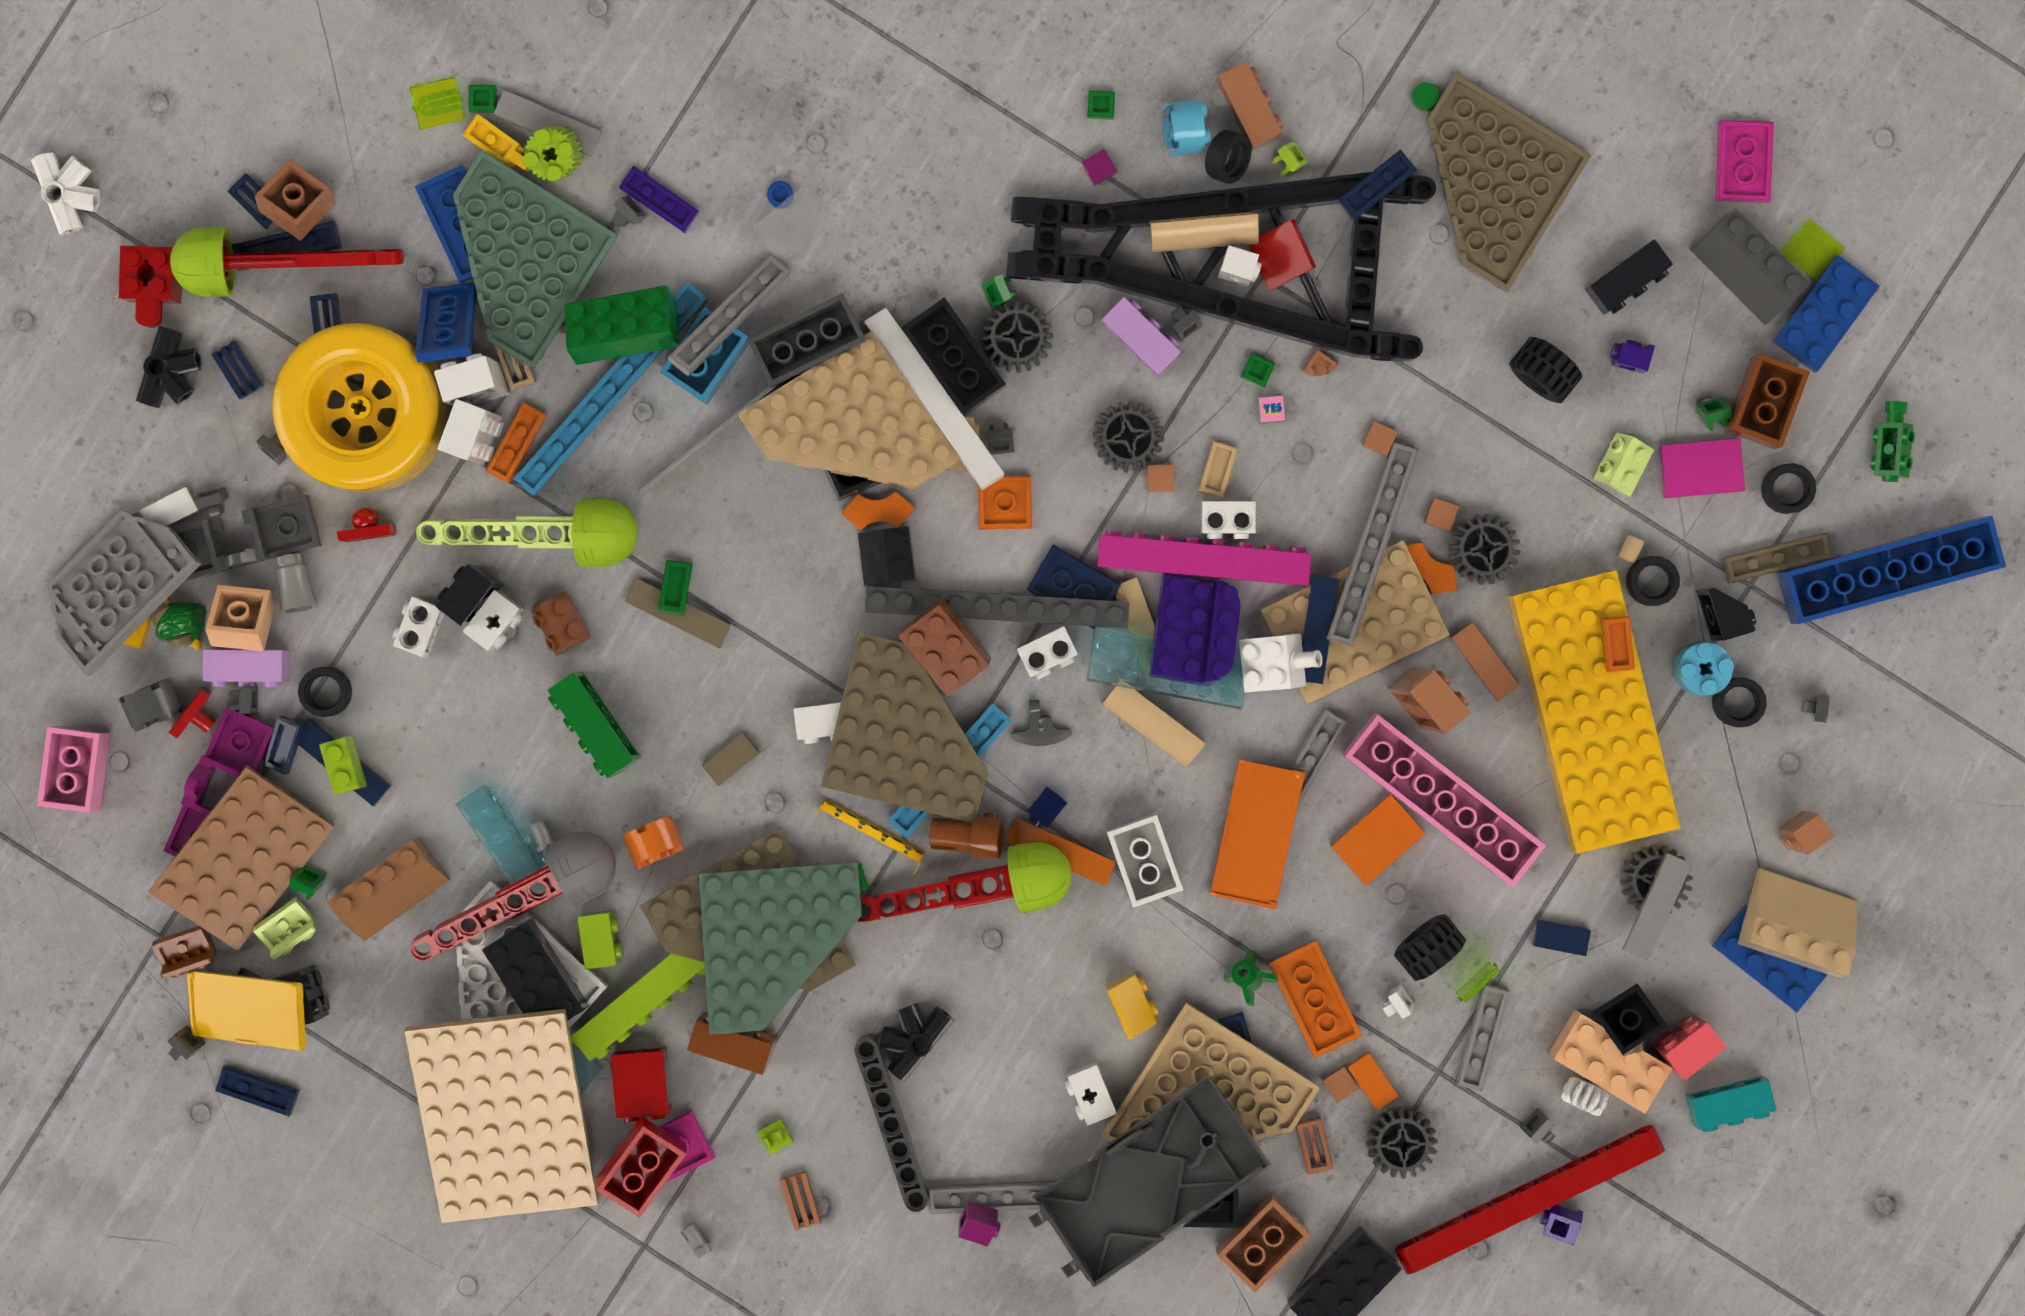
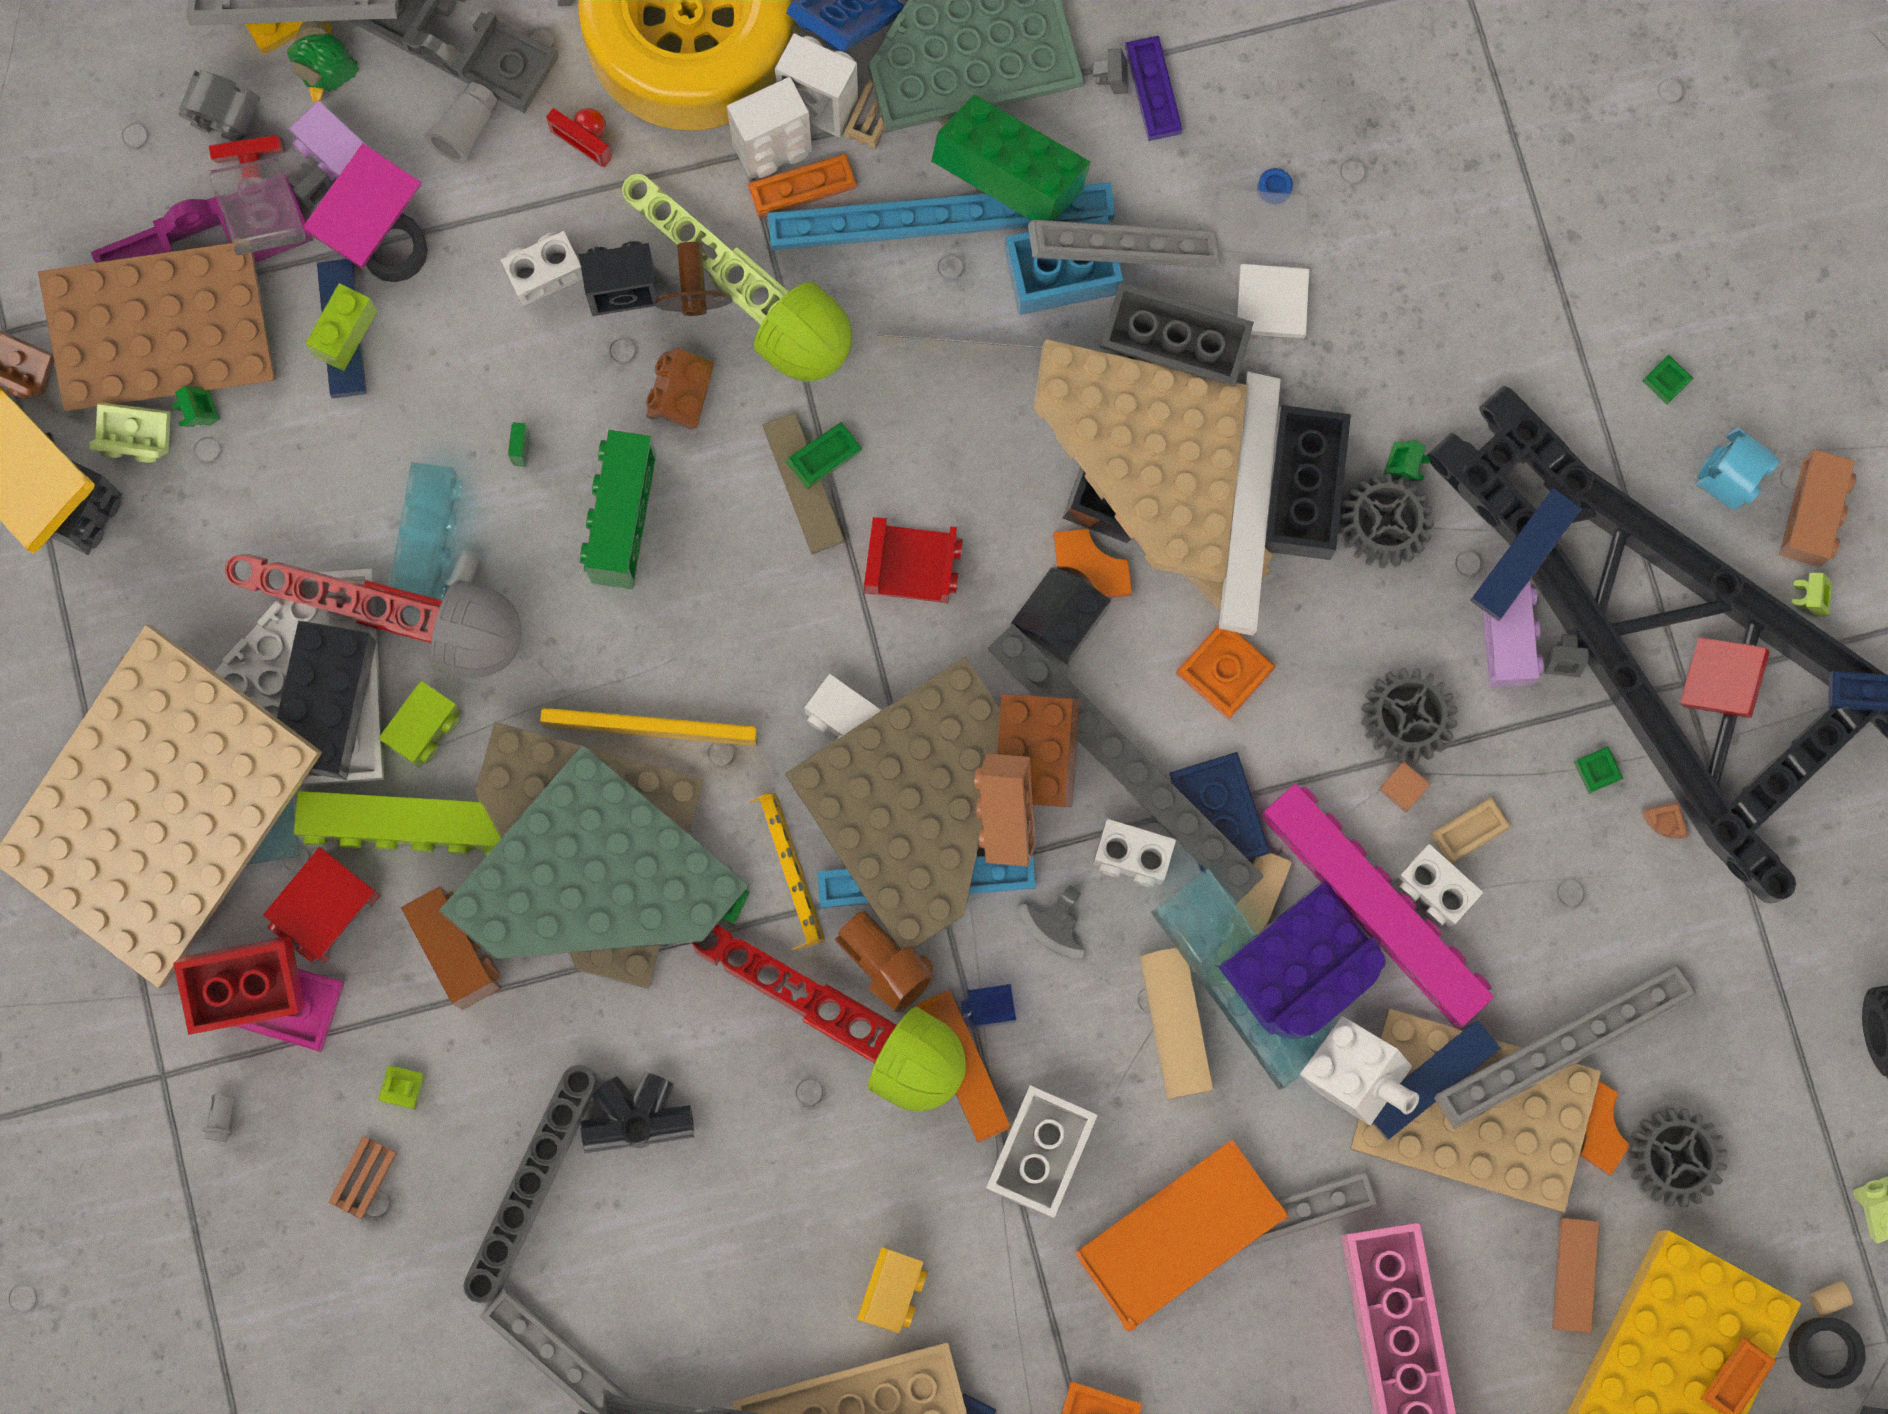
camera: 30 degrees right, 10 degrees down
(73, 769) = (86, 99): bright pink brick -> none
(229, 742) = (257, 206): none -> clear tile
(240, 618) = (383, 103): light nougat brick -> none
(283, 745) = (300, 262): dark blue tile -> none
(287, 687) = (362, 206): none -> dark pink tile
(388, 889) = (265, 486): medium nougat slope -> none
(481, 628) = (601, 325): white brick -> none
(502, 737) = (518, 444): none -> green tile
(511, 560) = (693, 297): none -> reddish brown piece
(653, 842) = (567, 675): orange brick -> none
(723, 826) = (649, 726): none -> yellow tile
(730, 759) = (719, 670): dark tan tile -> none
(778, 602) = (911, 562): none -> red panel
(840, 264) = (1274, 299): none -> white tile
(958, 697) = (1006, 809): none -> nougat brick
(978, 1224) = (520, 1373): magenta brick -> none
(1000, 440) = (1277, 604): dark grey tile -> none
(1099, 167) = (1613, 435): magenta tile -> none
(1102, 1104) = (764, 1368): white brick -> none
(1112, 288) = (1525, 554): none -> dark blue tile
(1204, 232) = (1667, 583): tan brick -> none
(1217, 155) = (1747, 520): black tyre -> none
(1239, 266) = (1672, 648): white brick -> none
(1248, 977) = (1038, 1375): green brick -> none
(1271, 409) = (1578, 820): tile -> none
(1377, 839) = (1300, 1358): orange tile -> none
(1380, 438) = (1664, 949): nougat tile -> none
(1430, 699) = (1495, 1247): nougat brick -> none
(1441, 514) = (1661, 1083): nougat tile -> none

